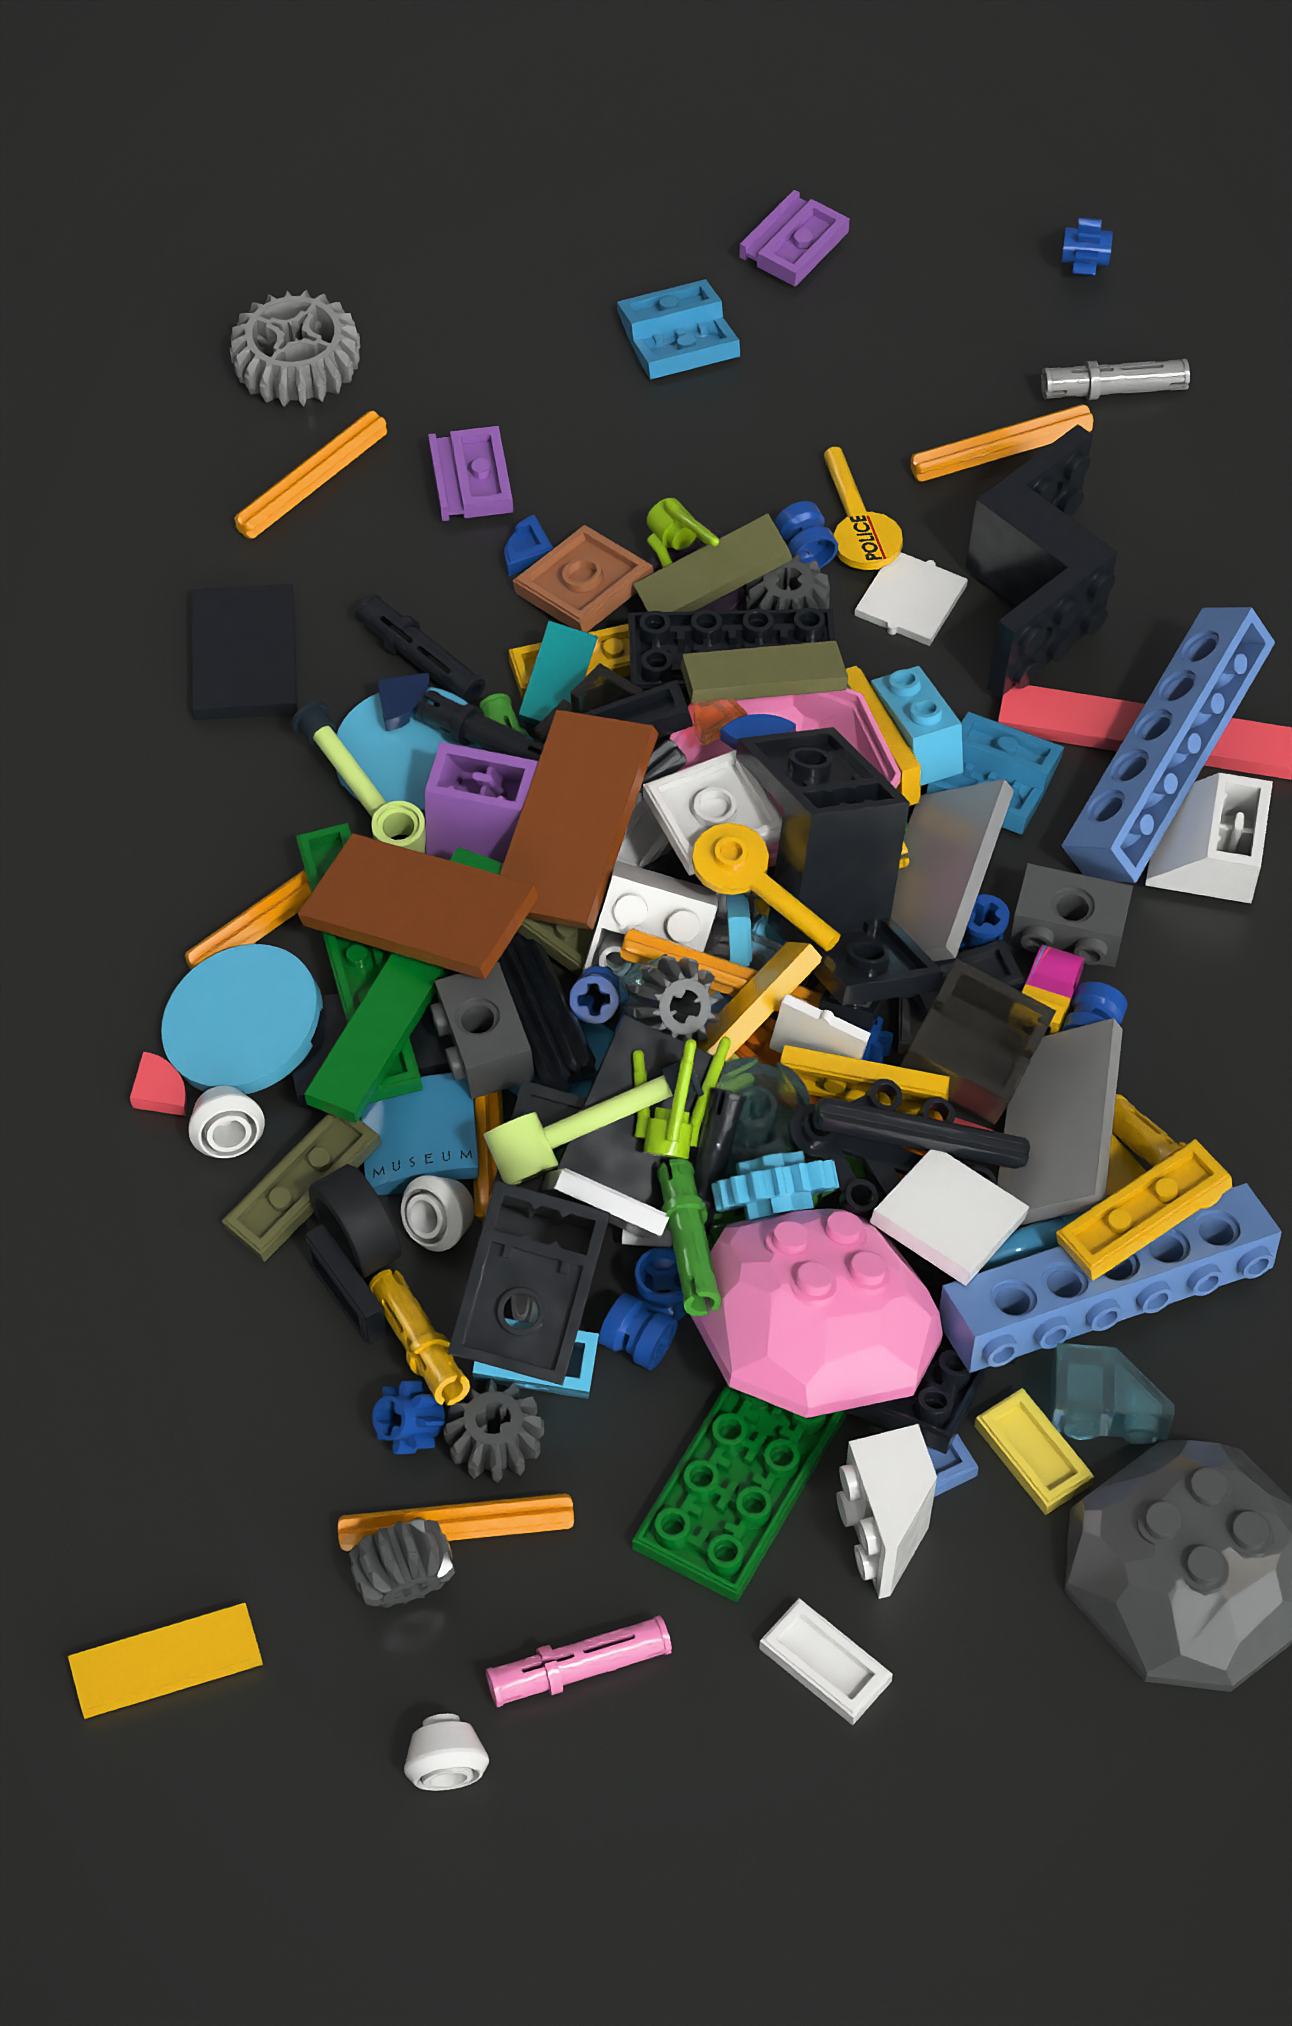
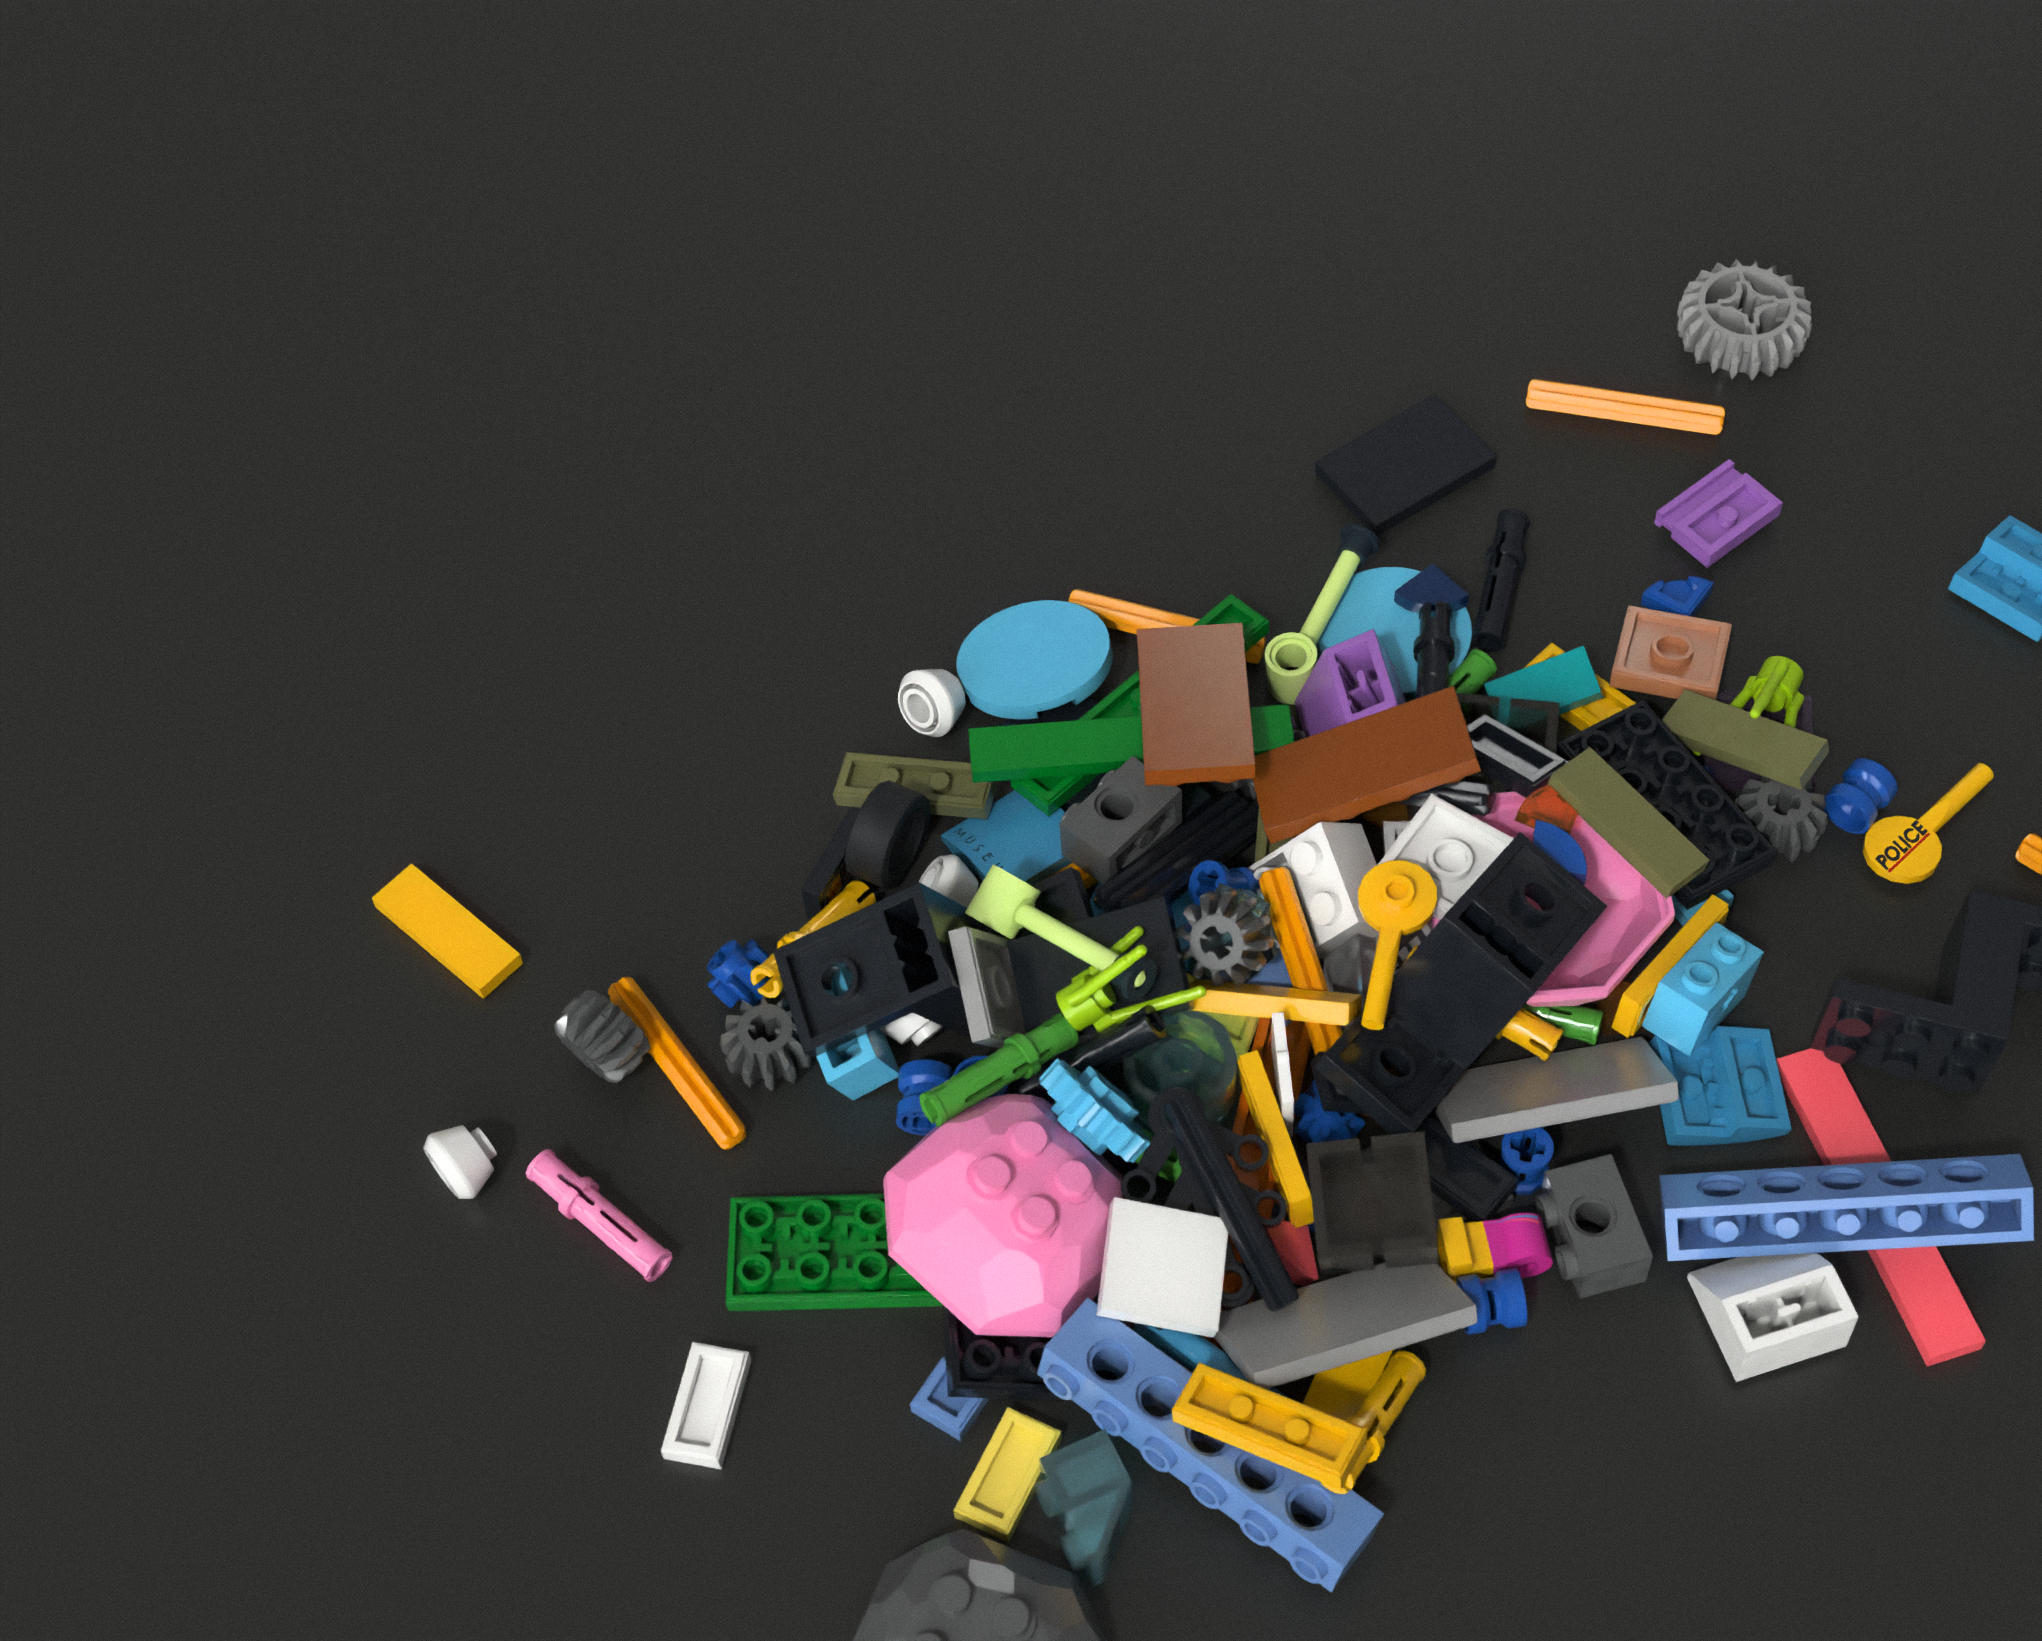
camera: 65 degrees right, 0 degrees up
(158, 1087) = (942, 641): coral tile -> none
(739, 929) = (1347, 952): medium azure tile -> none
(888, 1501) = (857, 1371): white slope -> none
(911, 598) = (1871, 921): white piece -> none

